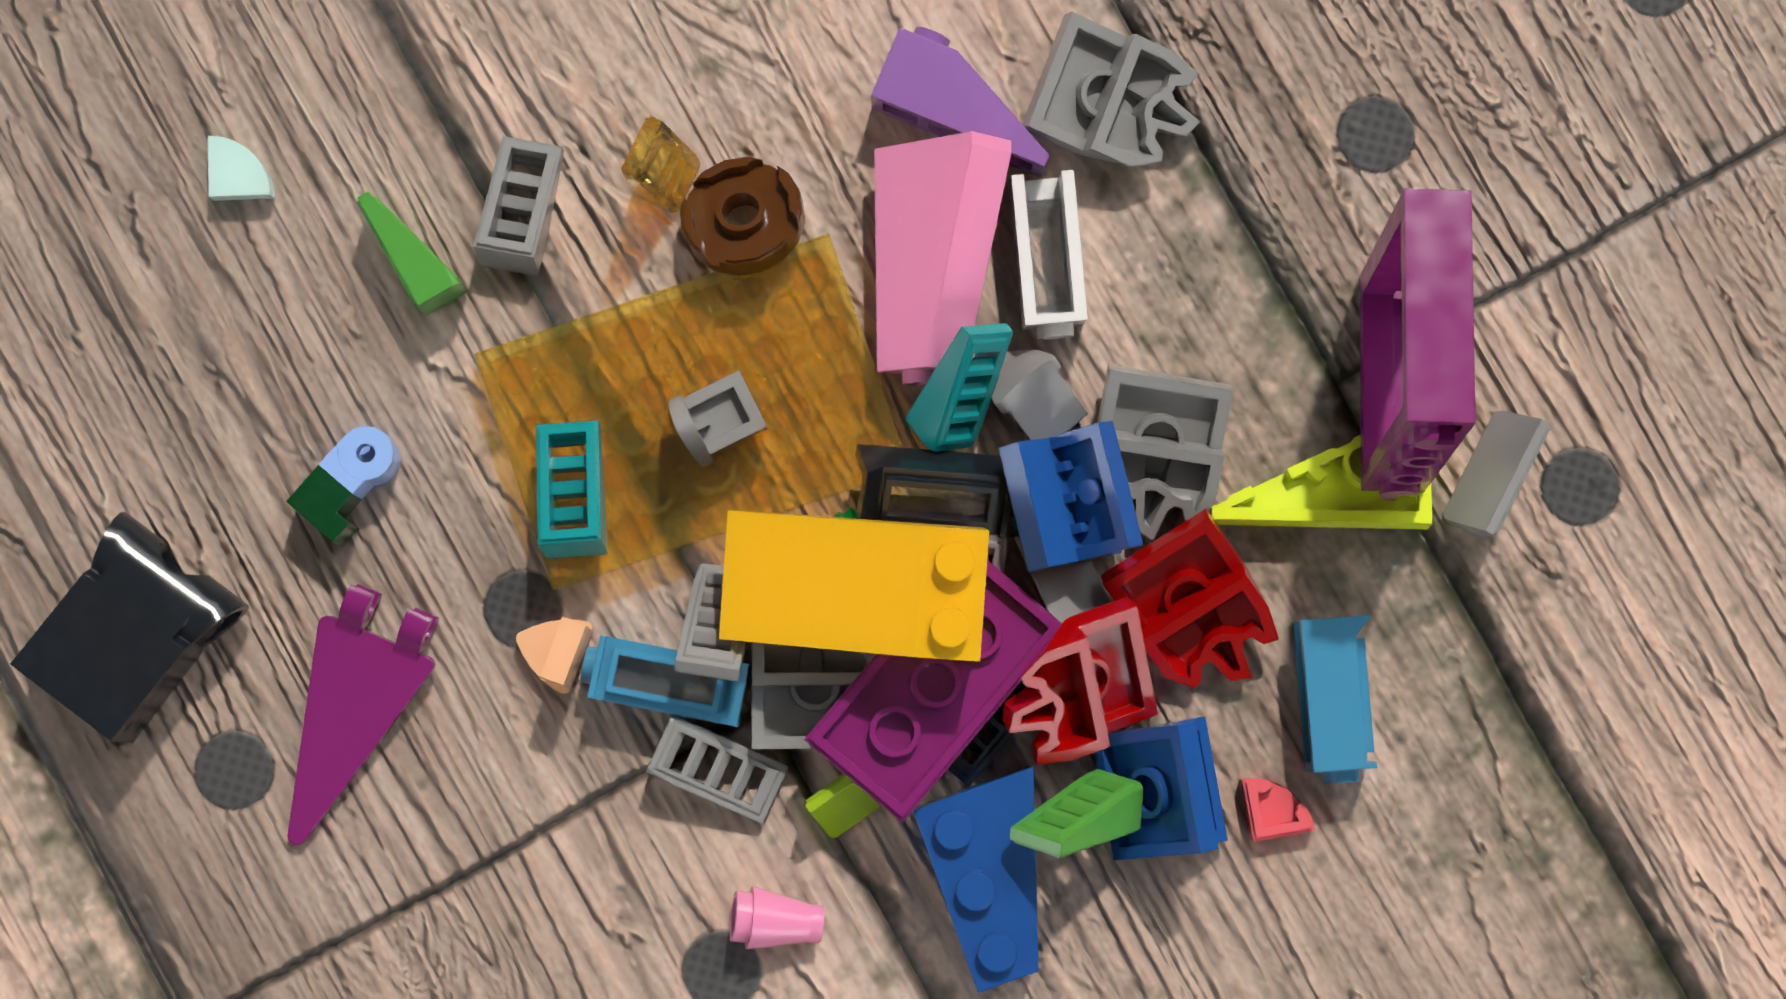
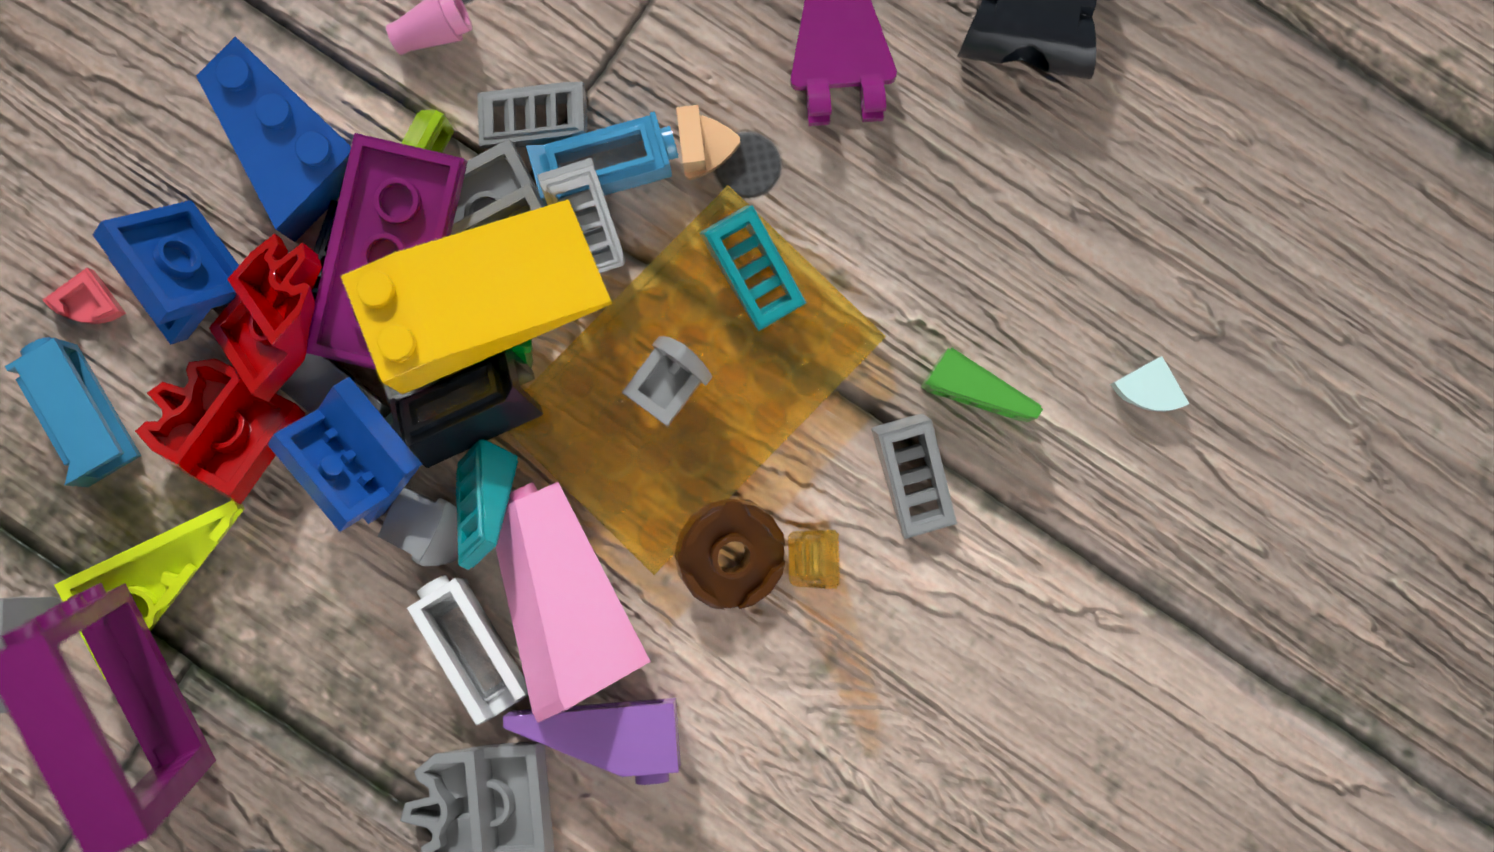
camera: 150 degrees right, 0 degrees up
(343, 479) = (937, 187): leg -> none
(1083, 815) = (218, 216): bright green slope -> none
(1167, 439) = (300, 550): light grey plate -> none

